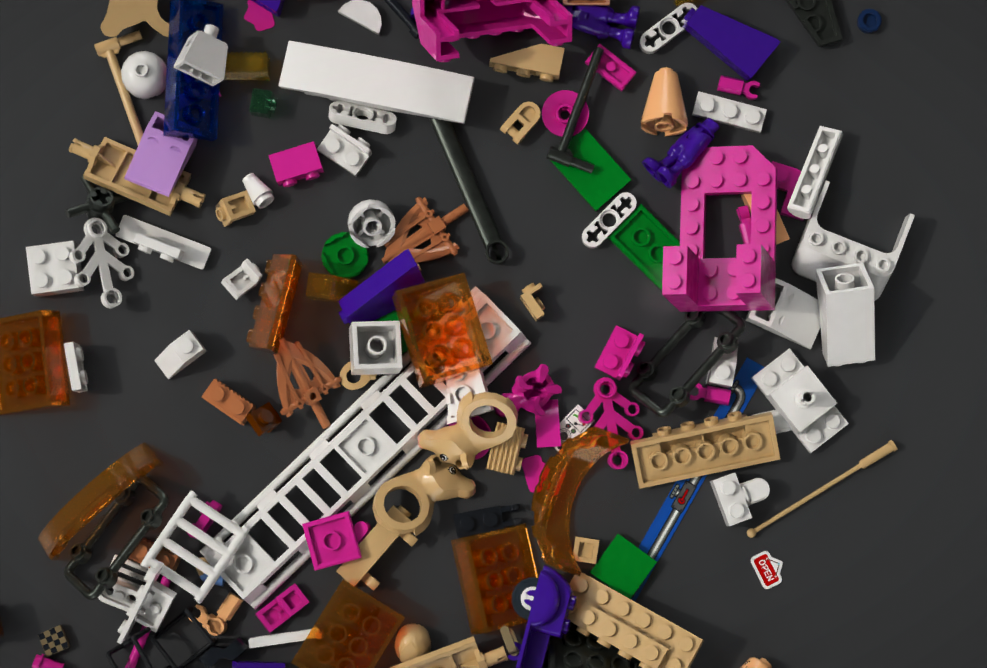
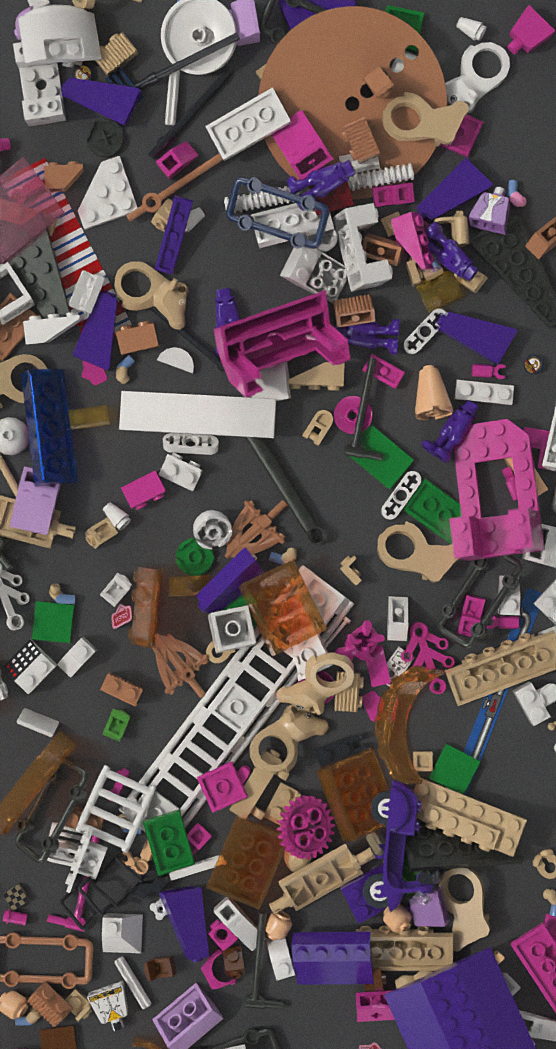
camera: 10 degrees left, 5 degrees up
(118, 427) = (38, 722): none -> white slope
(121, 357) = (30, 666): none -> white slope
(158, 307) = (53, 622): none -> green tile
(168, 244) = (51, 570): white bracket -> none
(171, 278) = (56, 593): none -> arm
(204, 56) = (56, 417): white torso -> none
(215, 445) = (116, 724): none -> bright green bracket
(243, 313) = (121, 616): none -> clear pink sticker
(254, 600) = (168, 842): none -> green tile
(262, 103) = (109, 445): clear green plate -> none
(264, 419) = (152, 699): reddish brown bracket -> none
(294, 15) = (121, 369): none -> arm
(403, 577) = (280, 799): none -> tan bracket
(429, 630) = (301, 810): none -> dark pink gear
(444, 272) = (285, 557): none -> arm
(474, 57) = (274, 382): none -> white slope
(518, 363) = (346, 620): none -> white piece
(581, 369) = (397, 618): none -> white slope
(618, 353) = (426, 601): dark pink bracket -> none
(630, 302) = (427, 559): none -> tan animal
(674, 375) = (470, 614): none -> dark pink slope
(793, 87) = (533, 364): none -> tile

